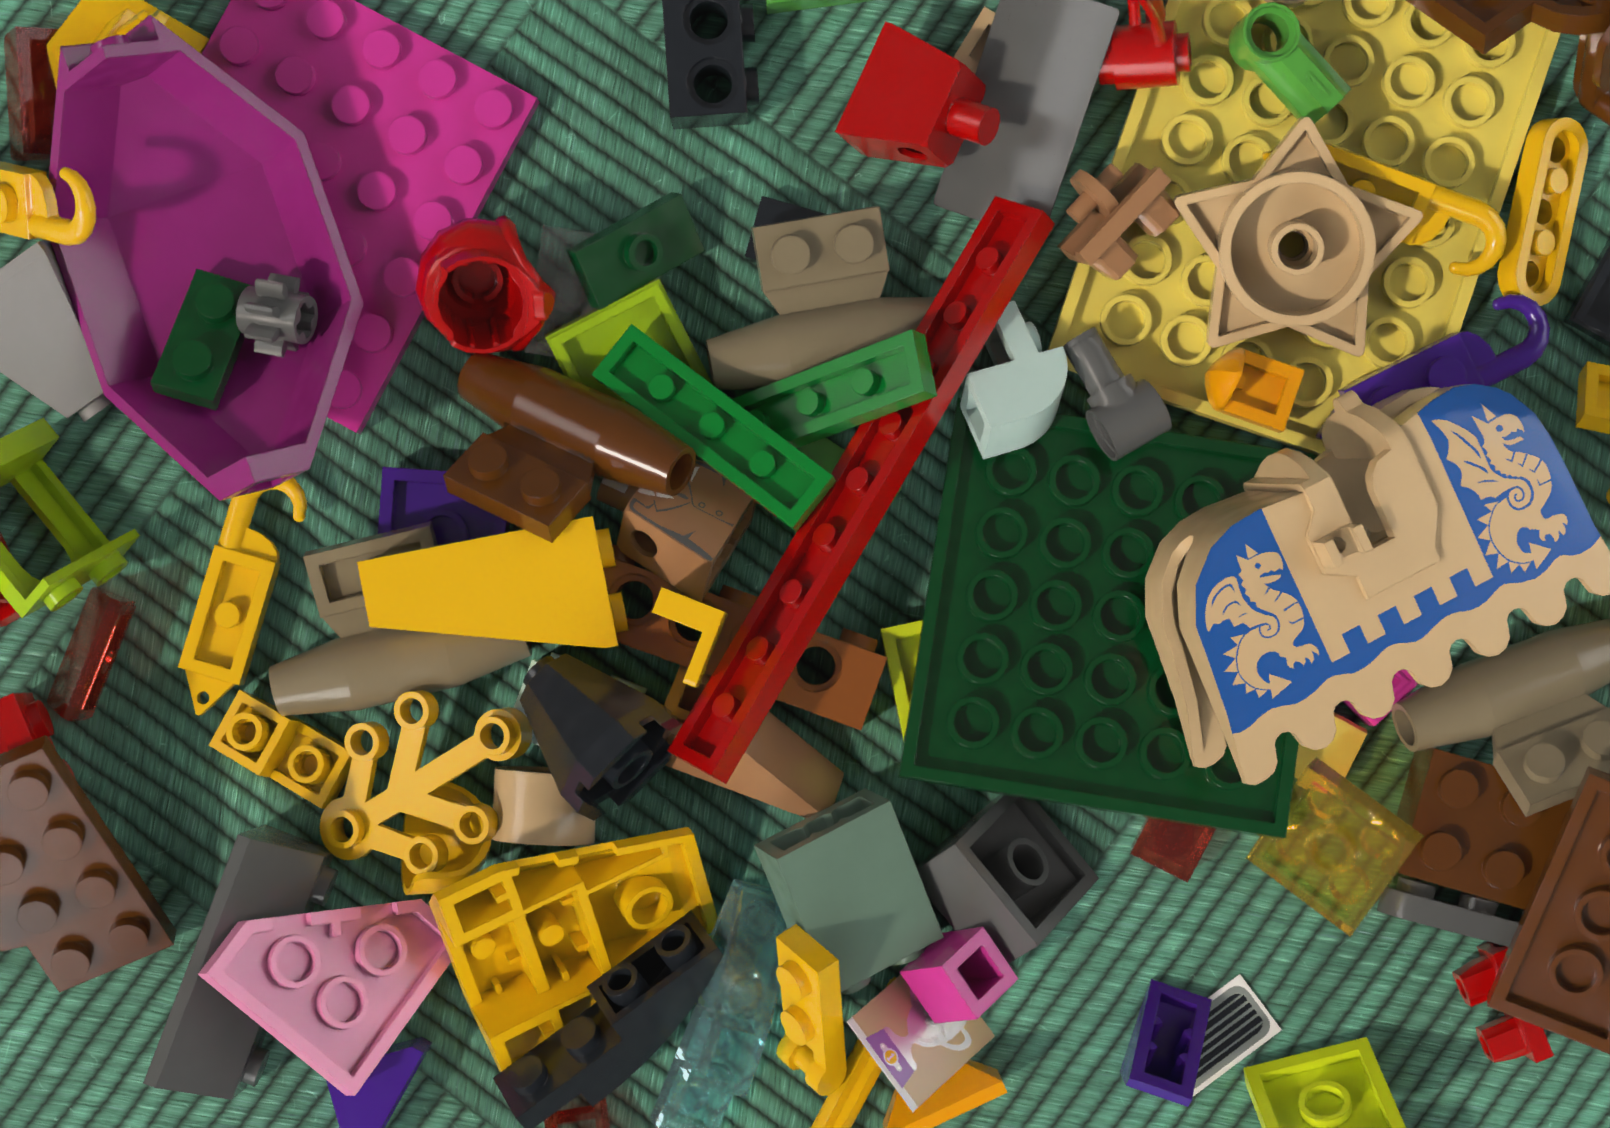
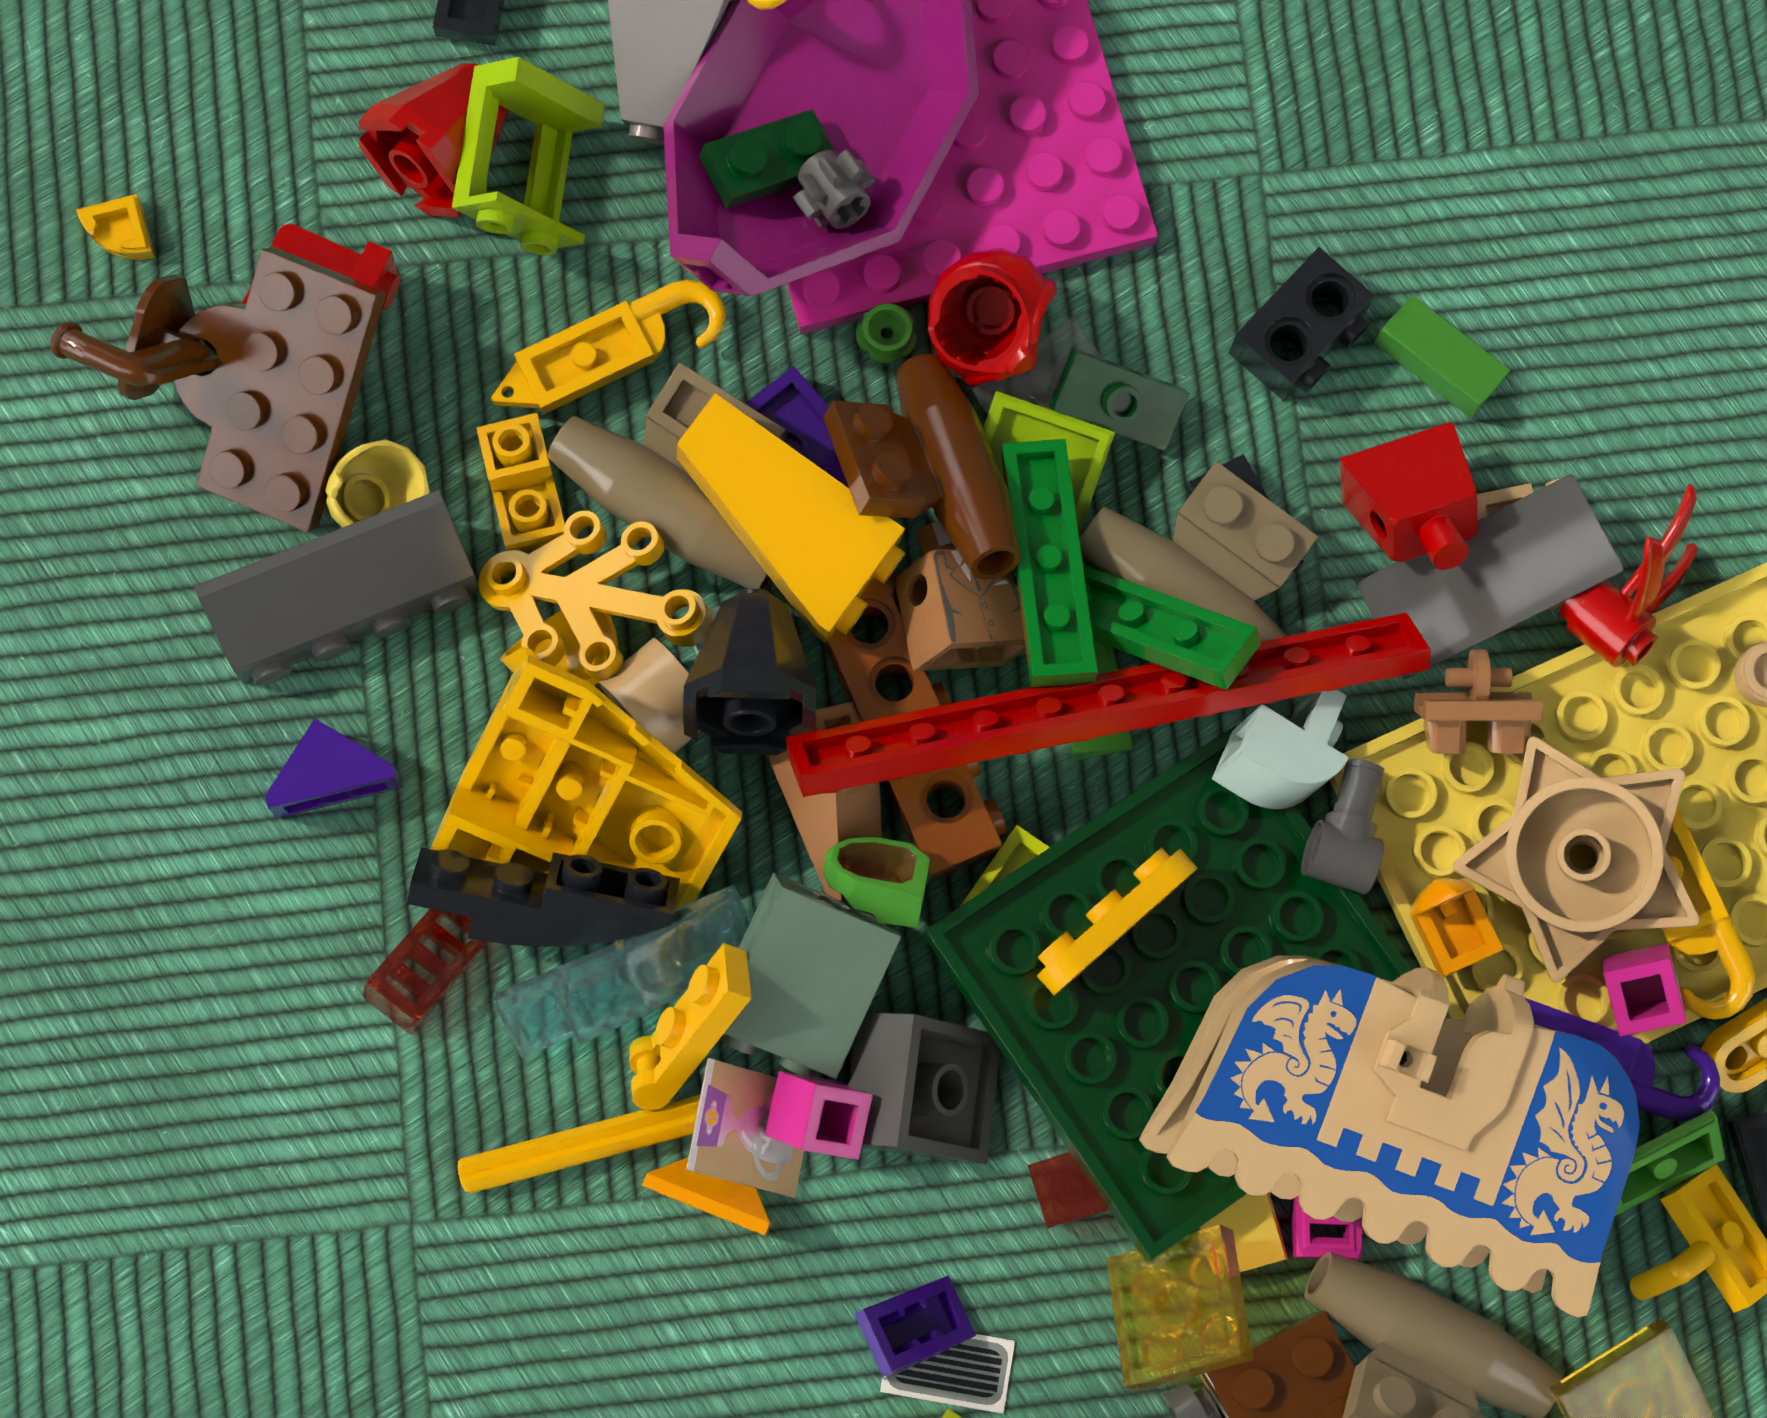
camera: 40 degrees right, 10 degrees down
(90, 654) = (465, 290): clear red slope -> none
(185, 864) = (373, 481): none -> light yellow hair
(333, 981) = (390, 660): bright pink plate -> none
(438, 370) = (887, 317): none -> bright green plate
(696, 616) = (904, 671): yellow panel -> none
(831, 773) = (879, 877): none -> bright green rock
(1022, 633) = (1114, 918): none -> yellow plate
(1294, 70) = (1707, 737): bright green piece -> none
(1430, 299) = (1644, 989): none -> dark pink brick
(1560, 387) = (1672, 1159): none -> bright green slope

